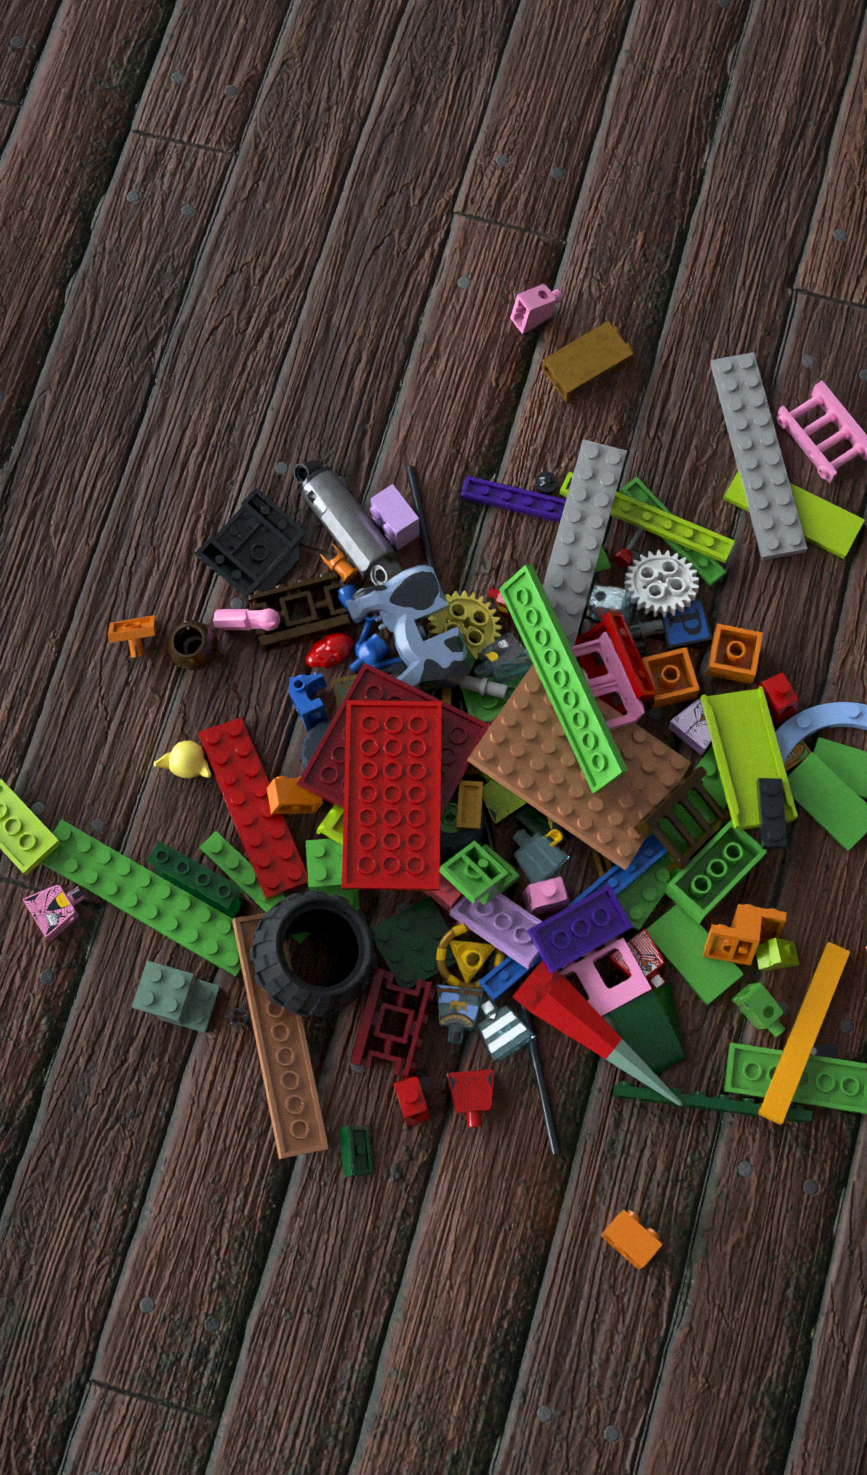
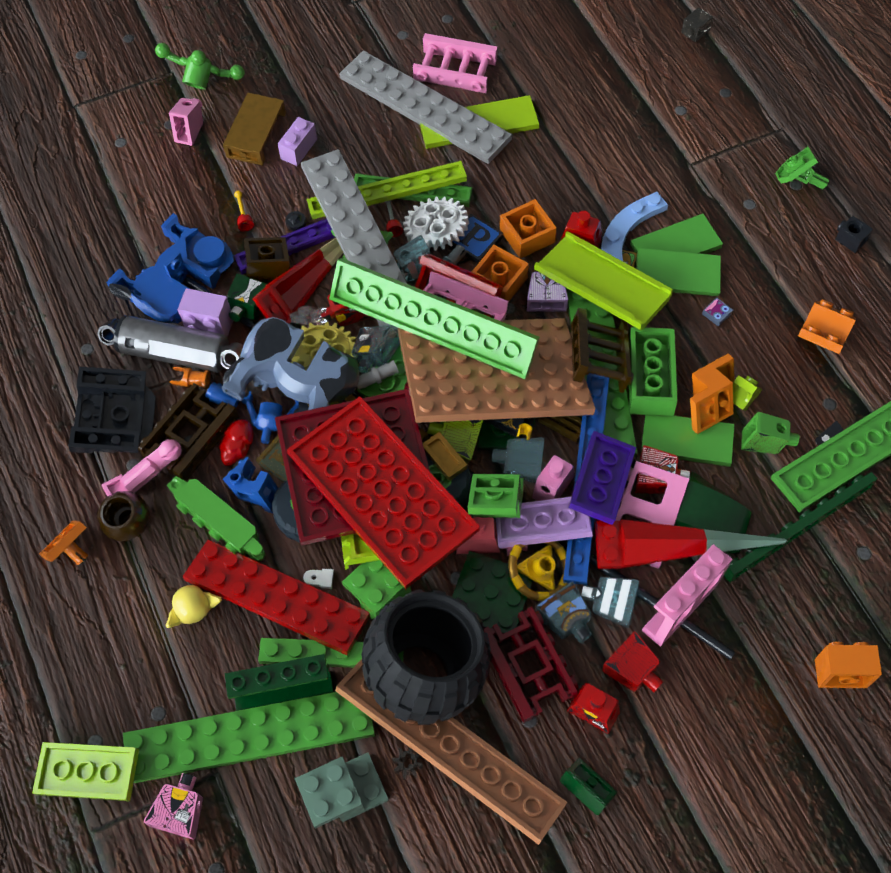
camera: 40 degrees left, 10 degrees down
(205, 614) = (114, 485): none -> bright pink tile
(263, 705) = (217, 517): none -> bright green hinge
(288, 798) = (301, 562): orange brick -> none
(301, 823) = (323, 579): none -> white piece
(374, 459) = (159, 288): none -> blue animal
(442, 528) = (241, 296): none -> dark green torso
(478, 584) = (307, 315): none -> clear plate
(479, 551) = (297, 284): none -> red plate
(487, 503) = (266, 258): none -> dark brown slope
(503, 449) = (247, 219): none -> red hinge
(557, 1077) = (687, 594): none -> bright pink window
(587, 259) = (198, 67): none -> bright green wheel
(612, 404) = (297, 141): none -> lavender brick
(771, 813) = (655, 300): black plate -> none
(804, 1033) = (814, 429): light orange tile -> none
(830, 865) = (717, 311): none -> tile

